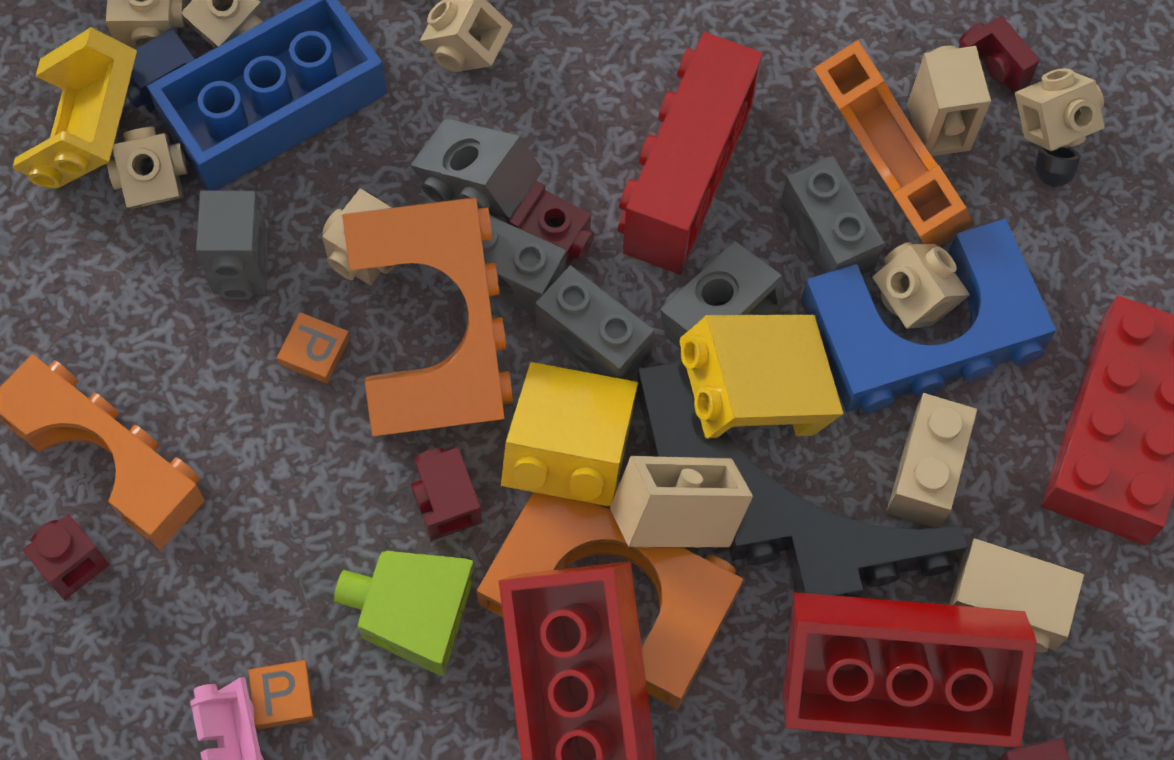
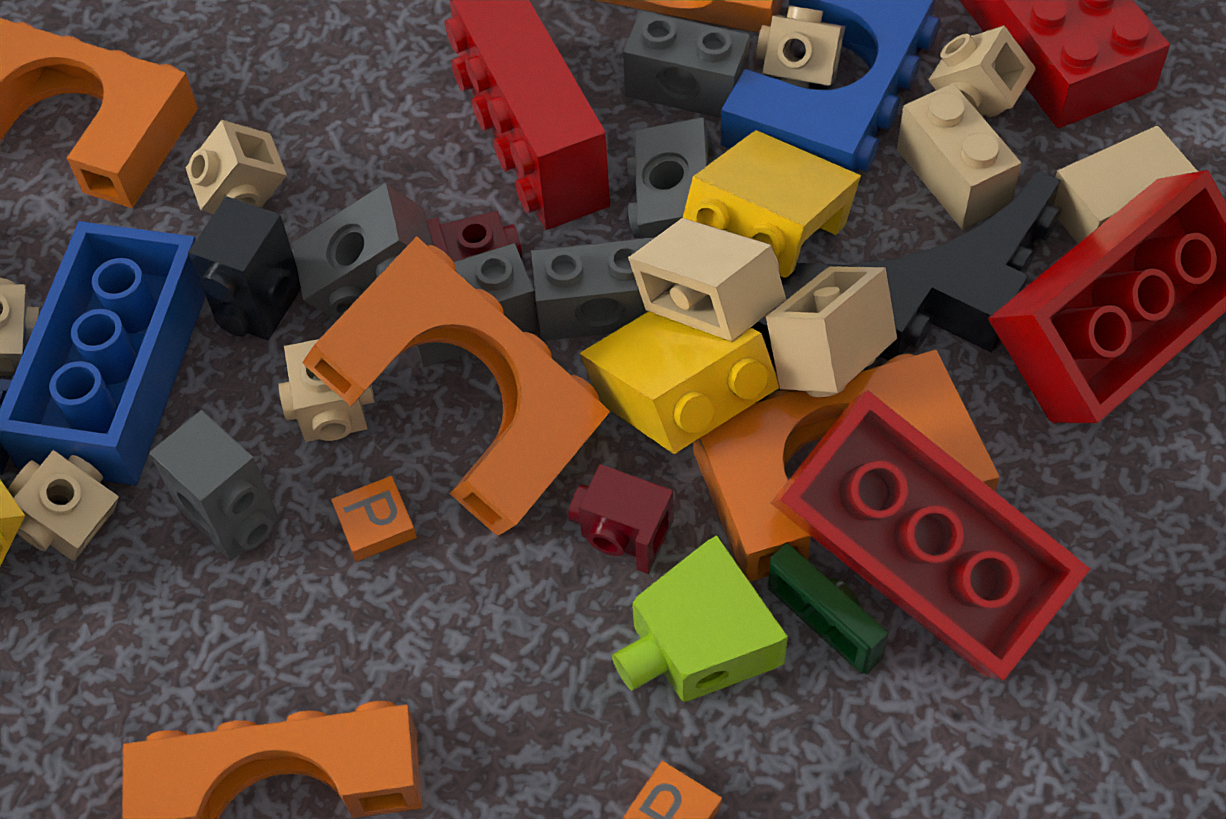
camera: 40 degrees left, 10 degrees down
(393, 111) = (246, 268): none -> black brick
(494, 672) = (827, 609): none -> dark green plate
(636, 394) = (708, 278): none -> tan brick
(1017, 419) = (986, 69): none -> tan brick

